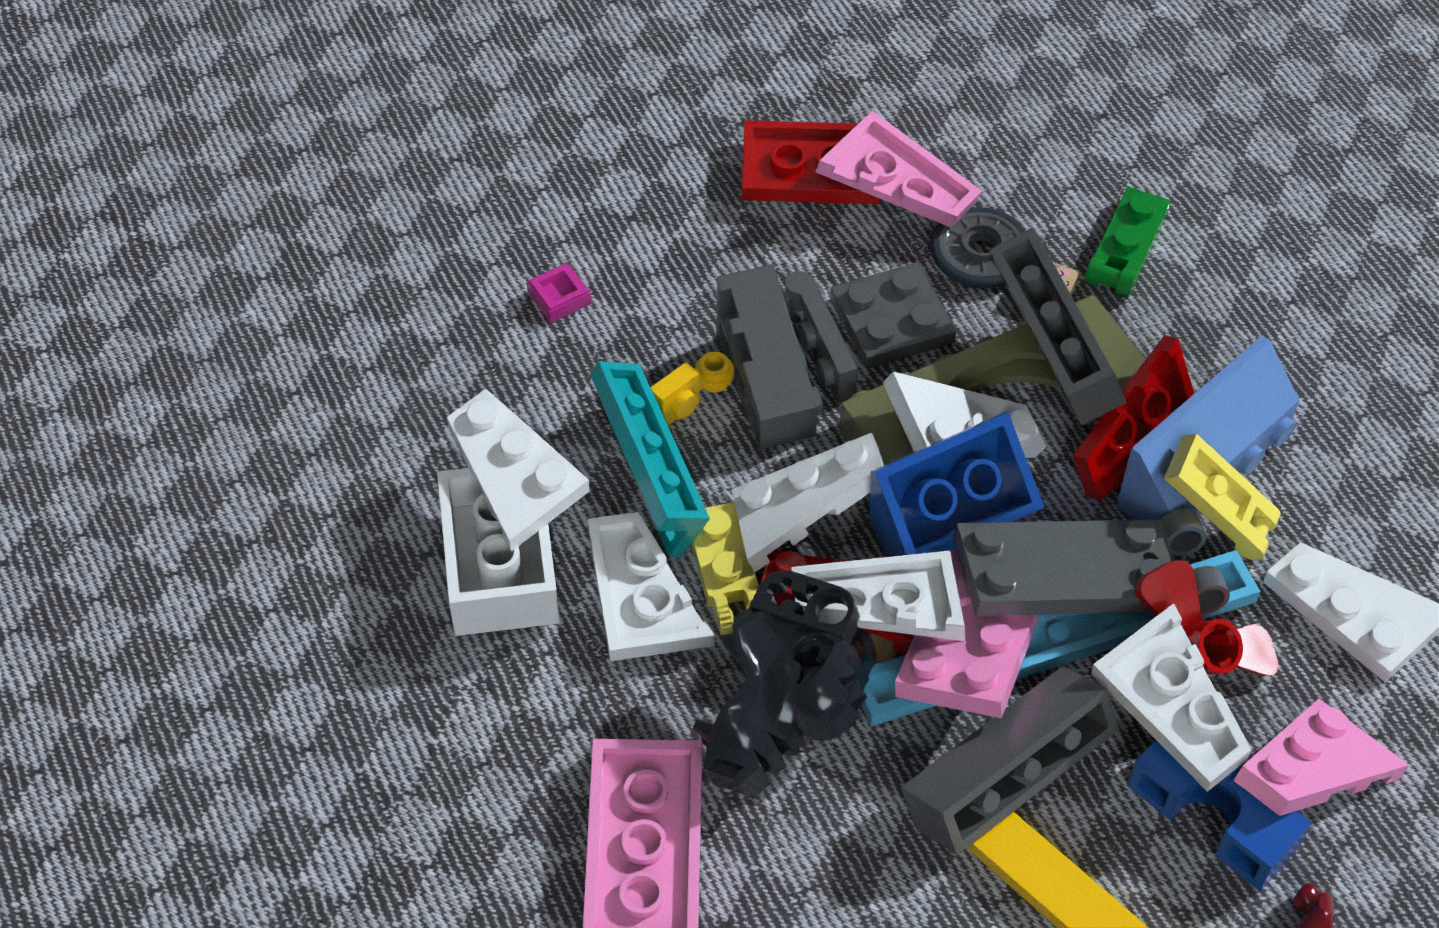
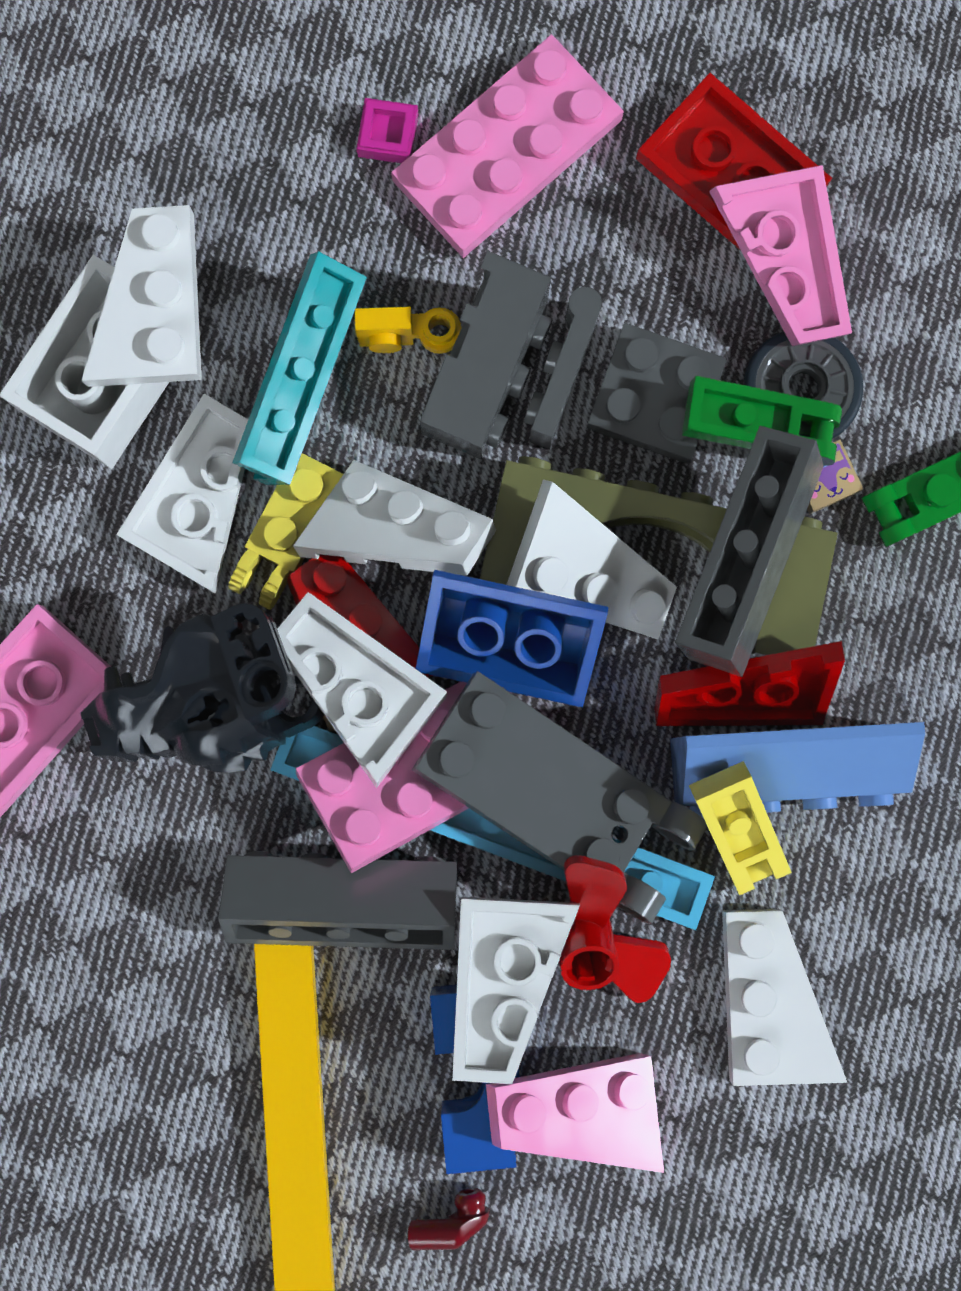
camera: 40 degrees right, 30 degrees up
(649, 249) = (507, 145): none -> bright pink plate
(961, 275) = (734, 412): none -> green plate

